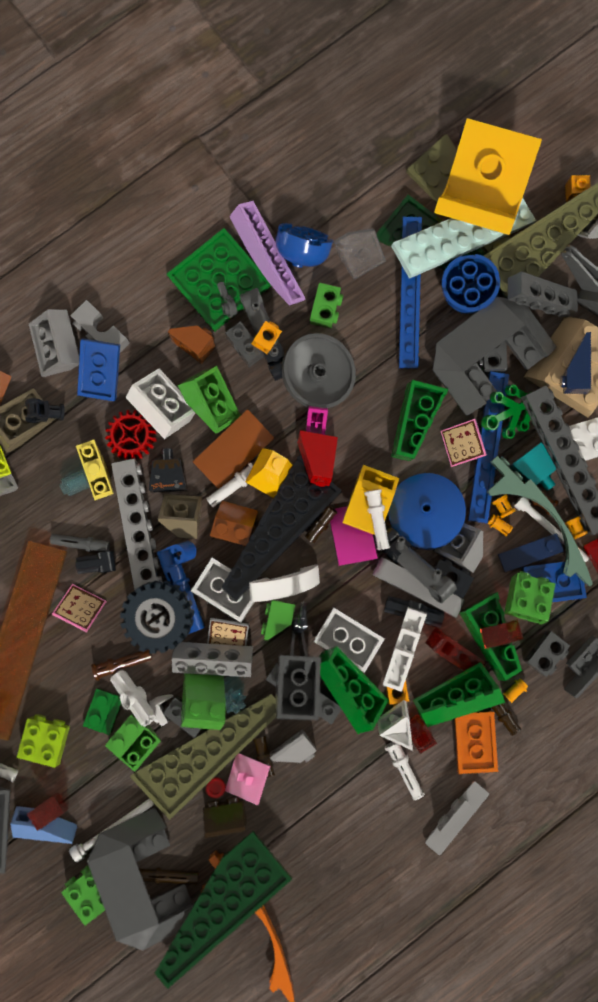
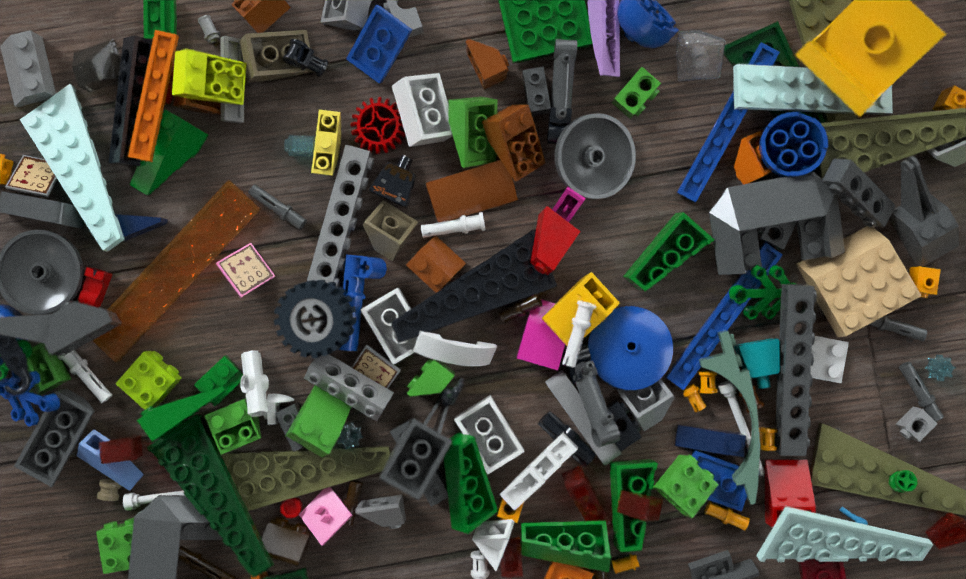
camera: 25 degrees right, 5 degrees up
(54, 852) = (108, 490): none -> dark tan wheel
(74, 763) = (165, 418): none -> green wedge
(100, 563) = (286, 236): black piece -> none
(112, 666) = (250, 339): reddish brown pin -> none
(131, 799) = (202, 474): none -> dark green wing
(229, 307) = (540, 45): dark grey plate -> none
(247, 391) = (515, 140): none -> dark orange slope
(263, 344) = (552, 99): light orange brick -> none
(269, 472) = (495, 231): yellow slope -> none
(442, 313) = (748, 161): none -> orange slope
(463, 443) = (701, 299): piece -> none
(542, 649) = (672, 539): dark grey brick -> none
(577, 607) = (727, 516): none -> light orange pin
(578, 373) = (852, 291): dark blue slope -> none

